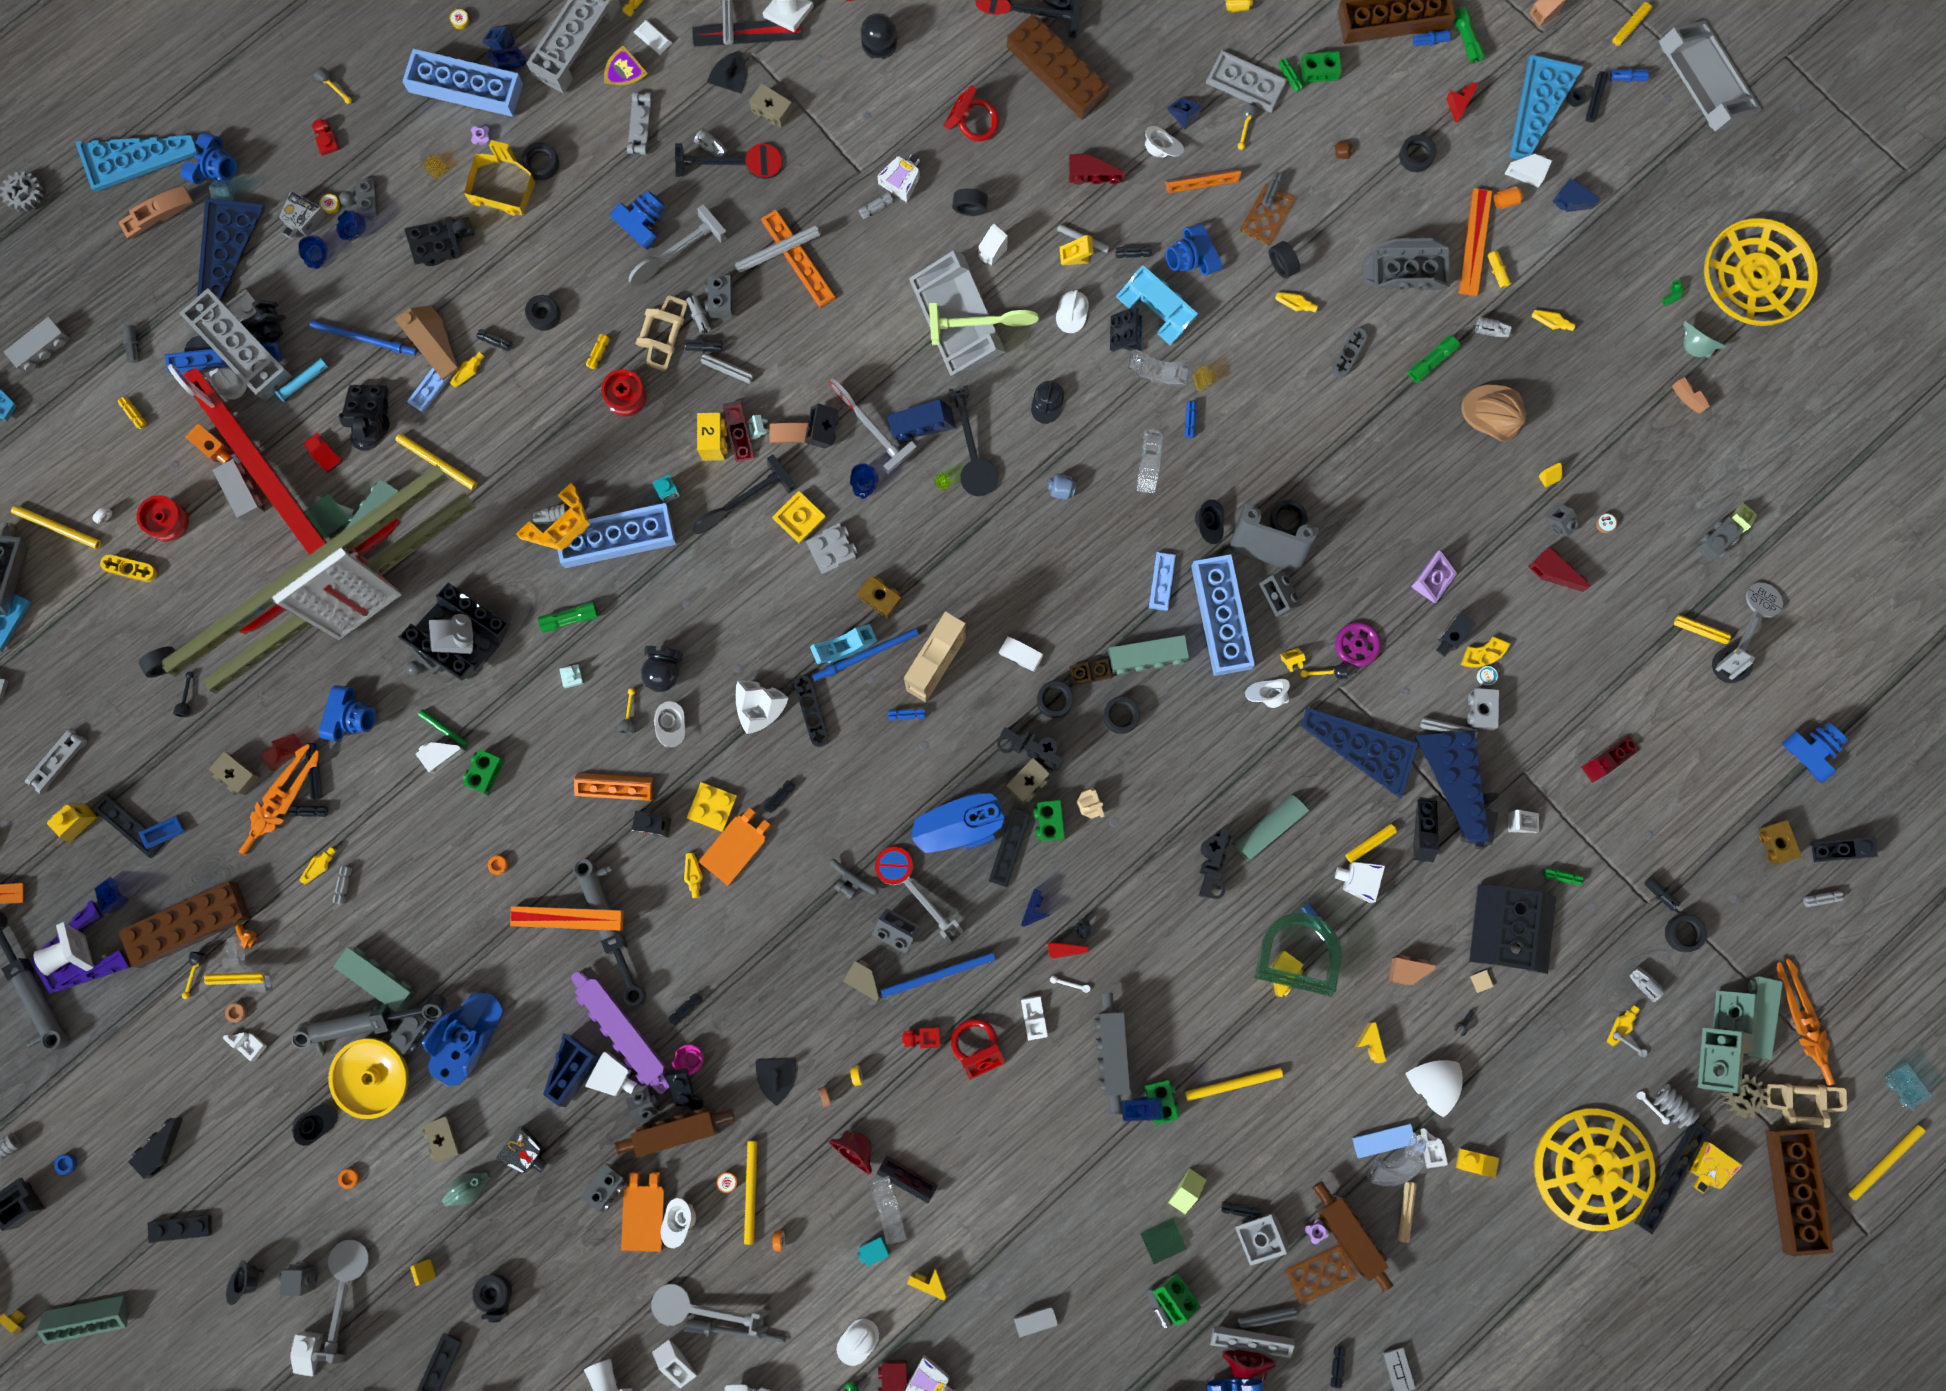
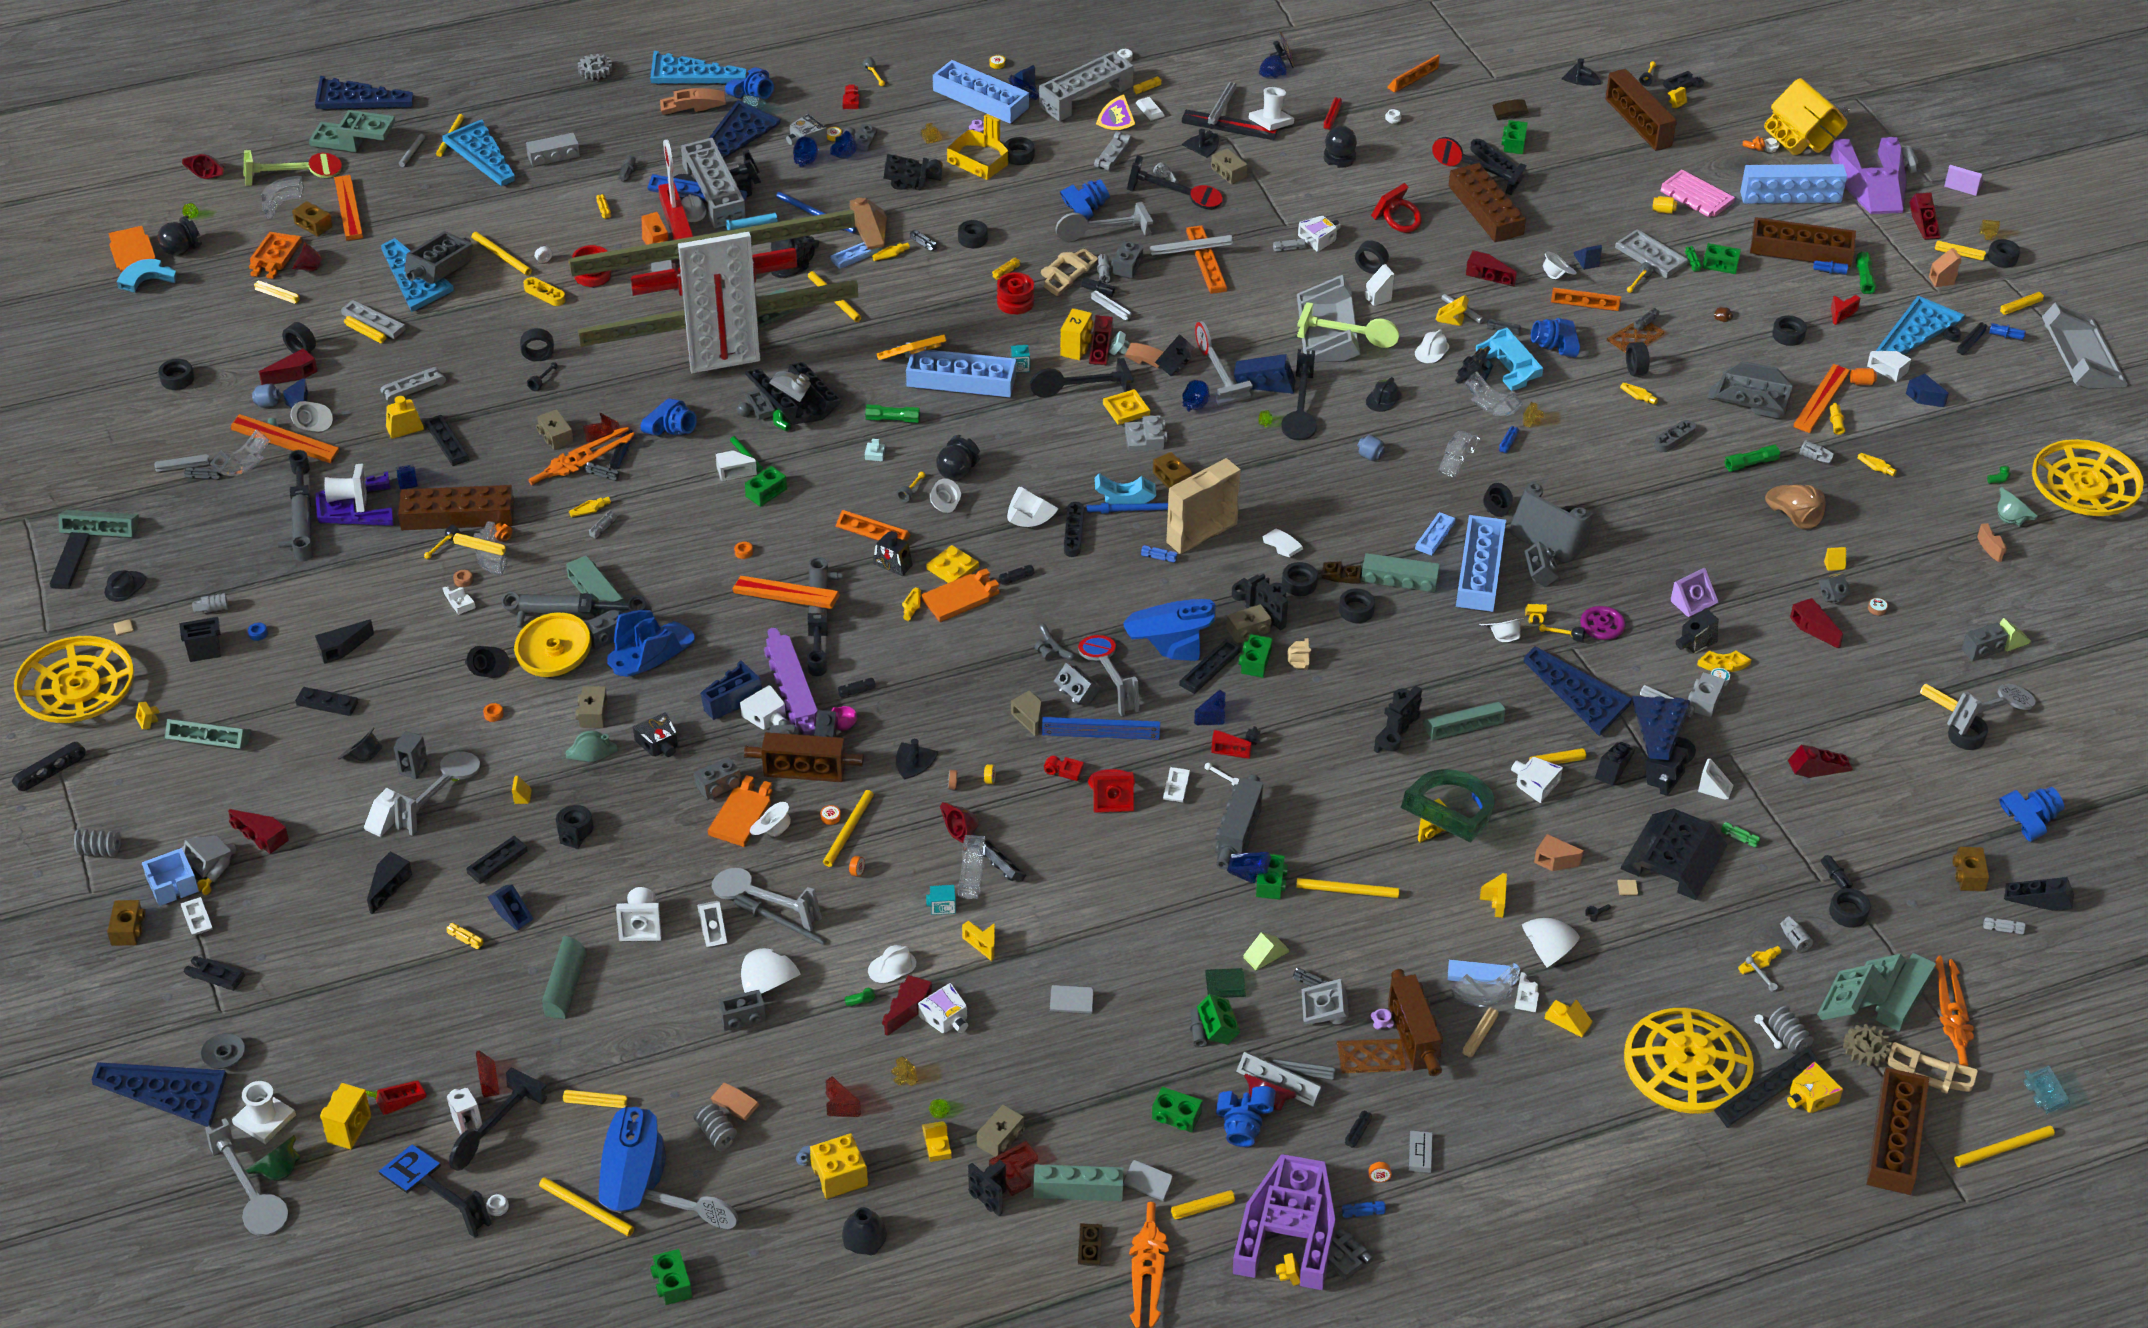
camera: 20 degrees right, 35 degrees down
(161, 832) = (472, 448): blue tile -> none

